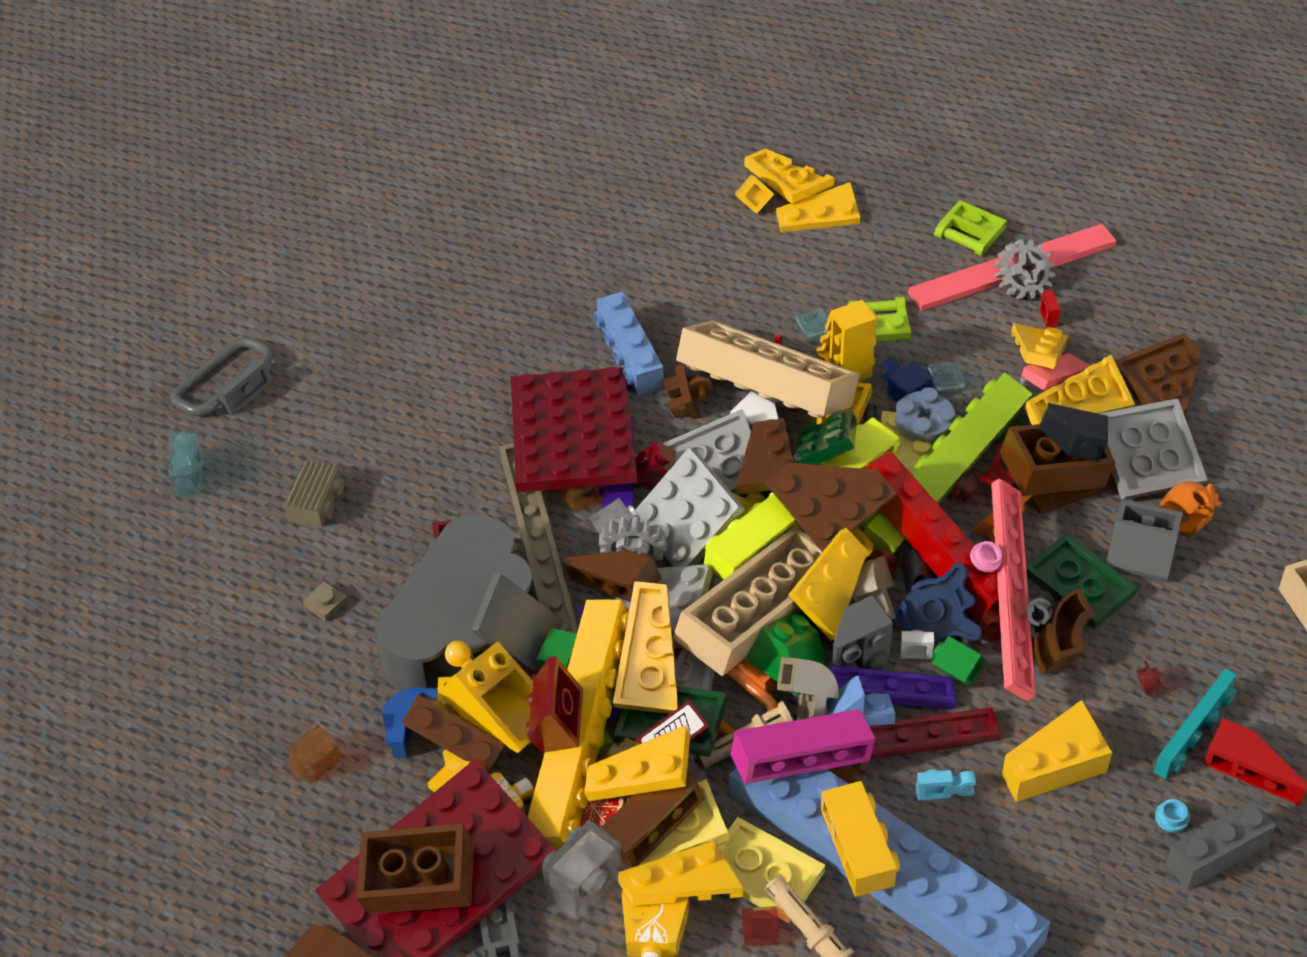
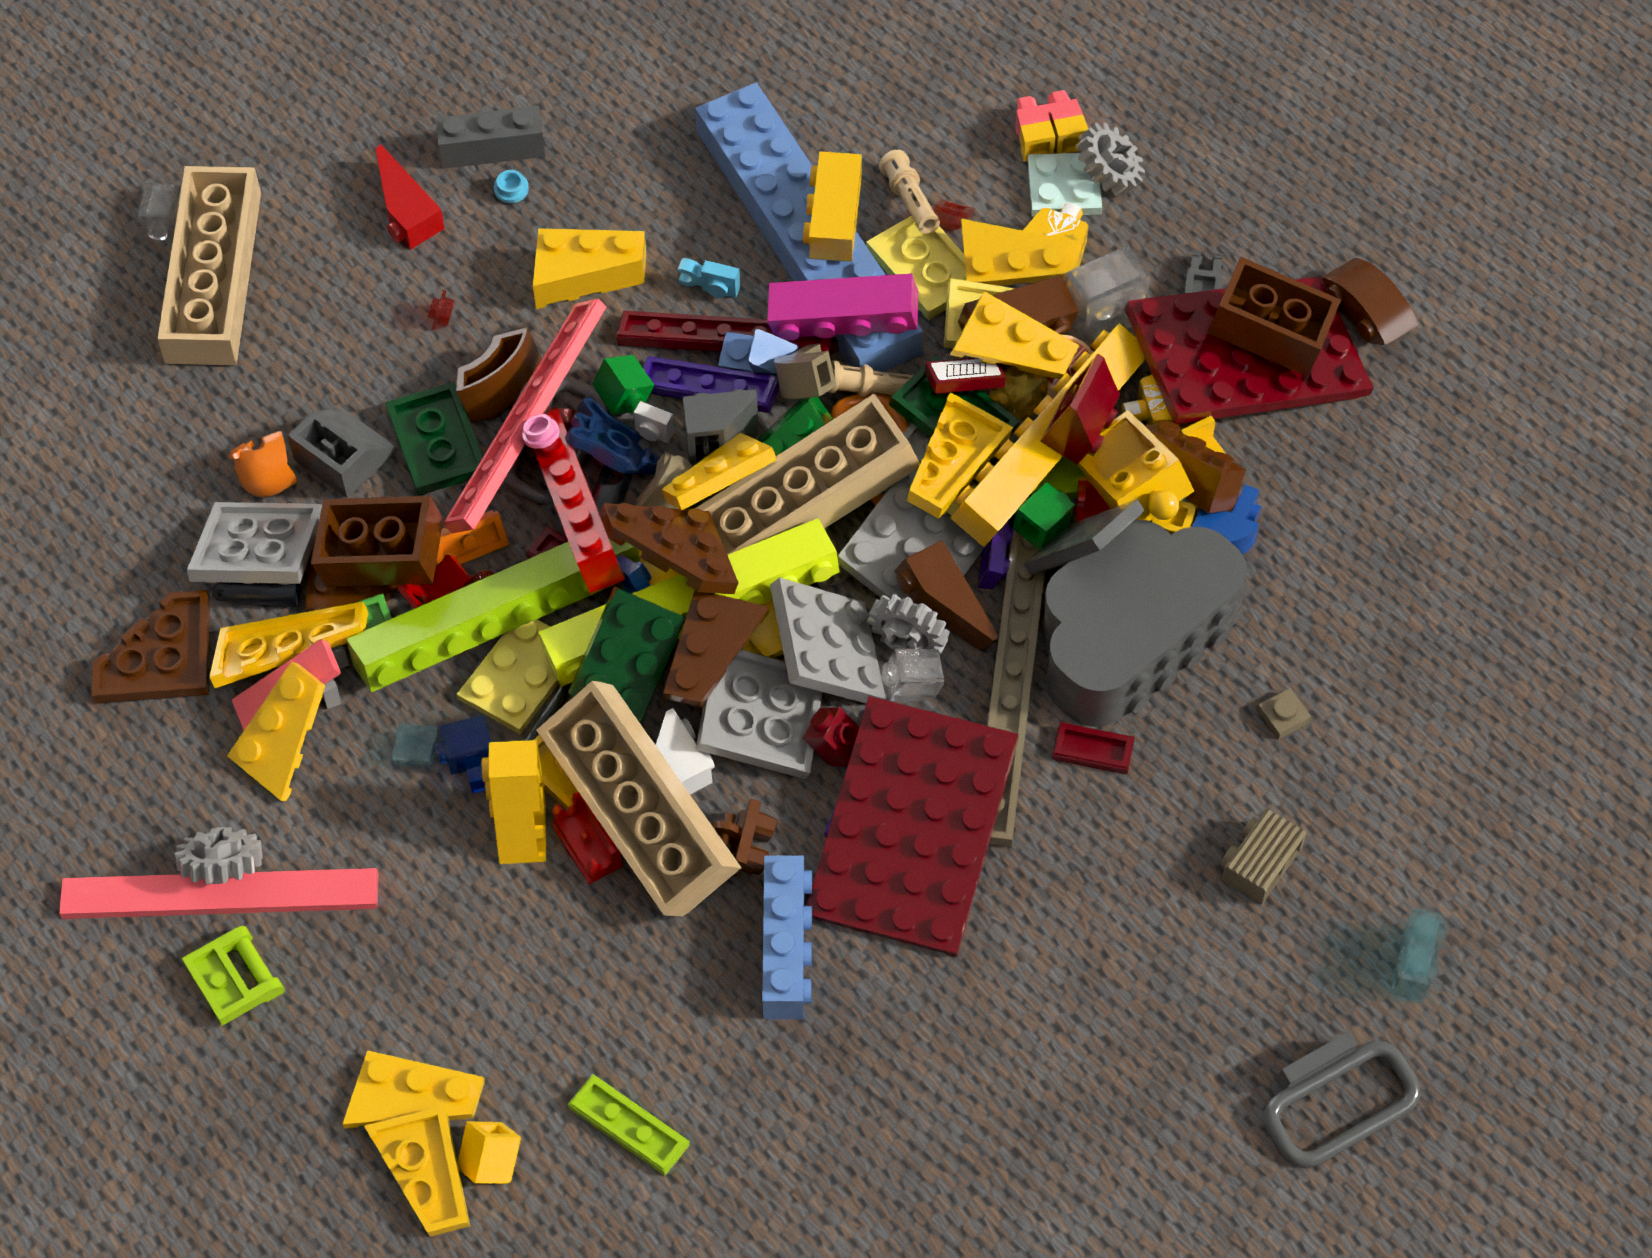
camera: 160 degrees left, 10 degrees up
(313, 755) = (1342, 521): clear orange brick -> none
(678, 235) = (628, 1124): none -> lime tile
(812, 324) = (529, 889): clear light blue plate -> none
(890, 325) = (445, 861): lime plate -> none
(929, 403) = (474, 664): sand blue plate -> none
(1040, 609) = (516, 375): dark grey pin -> none
(1049, 309) = (225, 794): red tile -> none
(1076, 431) = (347, 519): black slope -> none
(1190, 732) = (428, 251): teal plate -> none

